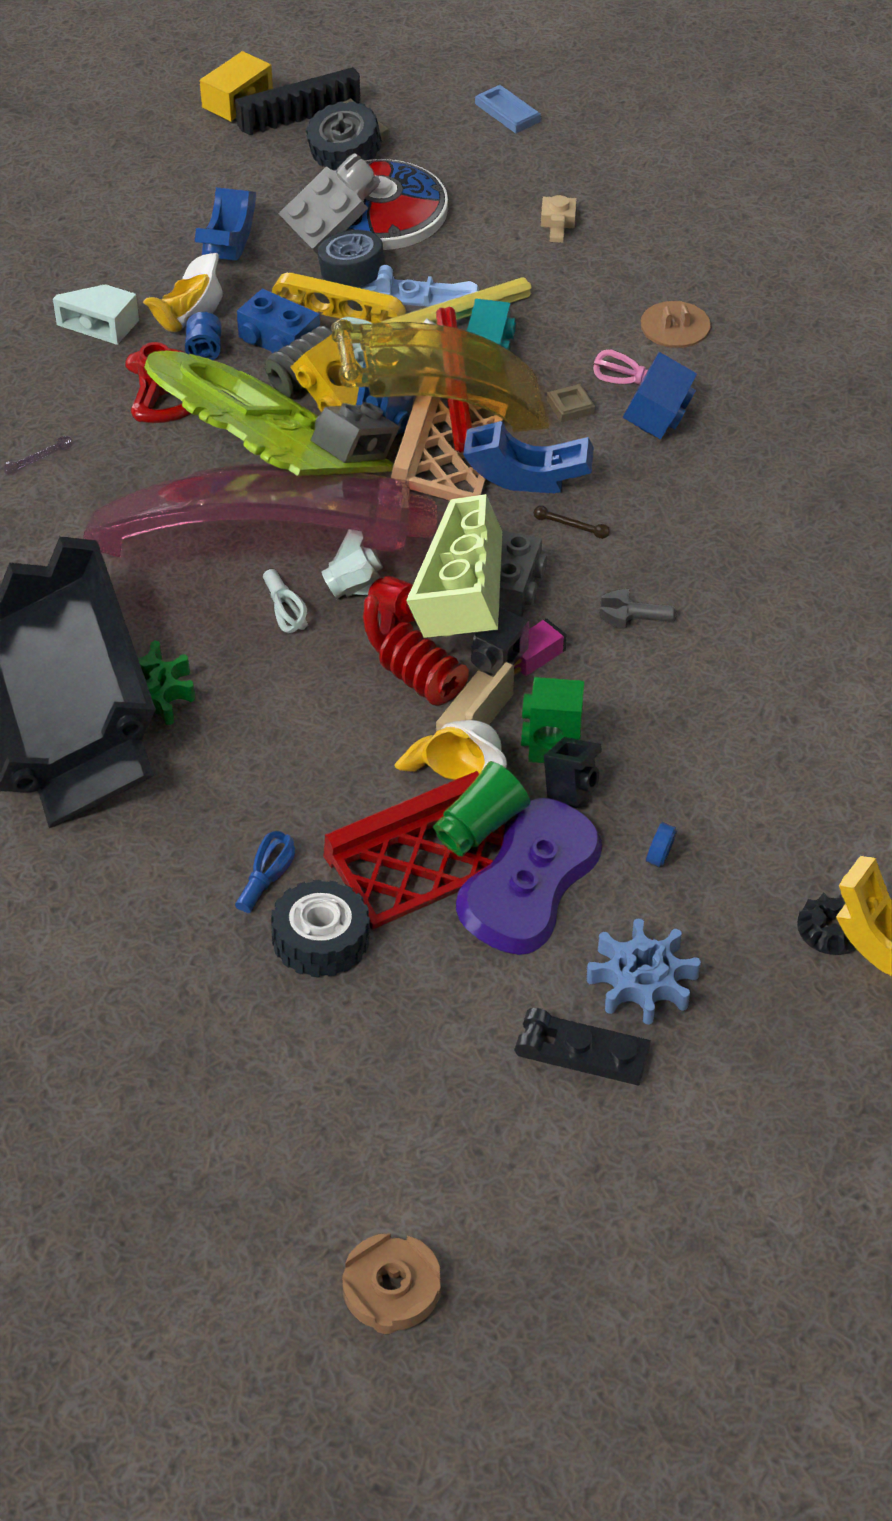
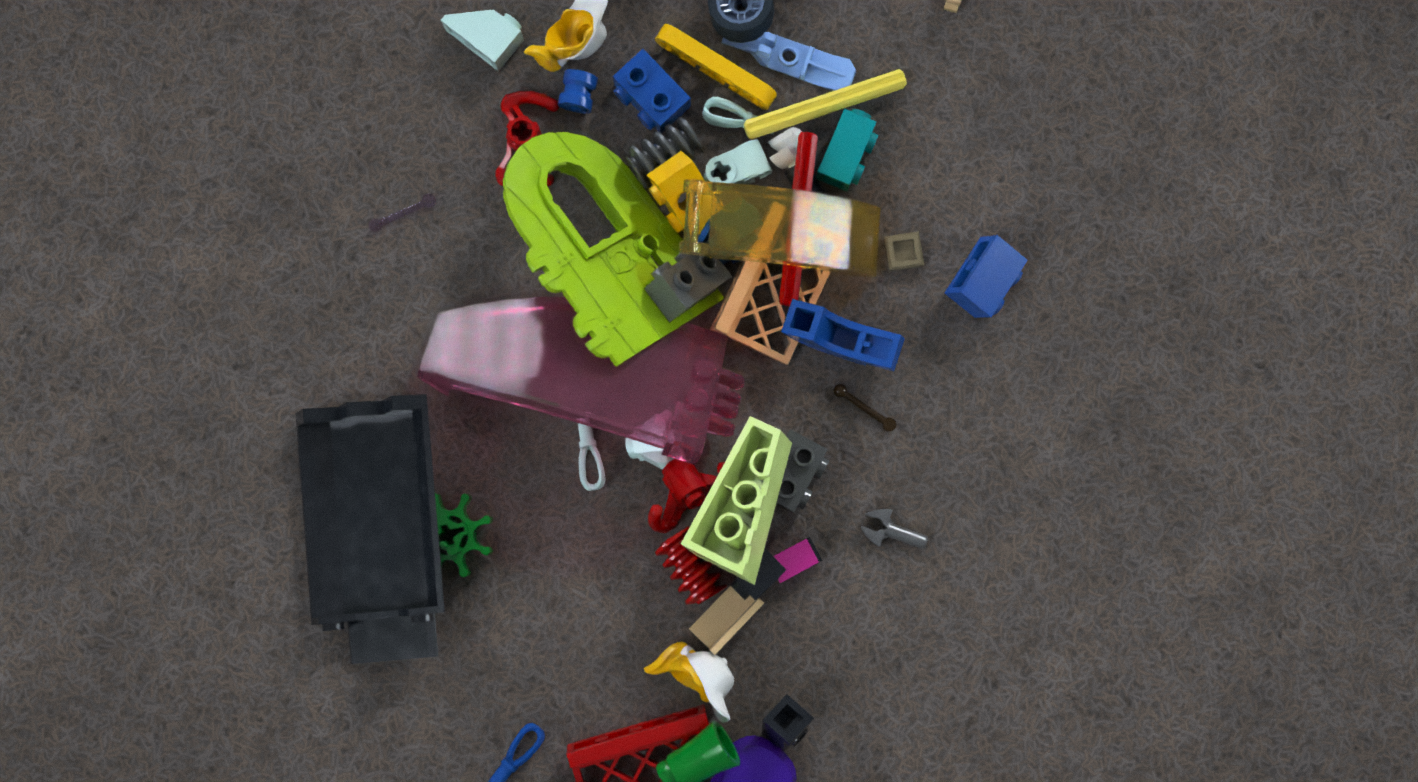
camera: 10 degrees right, 35 degrees up
(553, 714) = (783, 672): green brick -> none
(637, 374) = (979, 229): bright pink piece -> none
(675, 324) = (1032, 159): medium nougat piece -> none

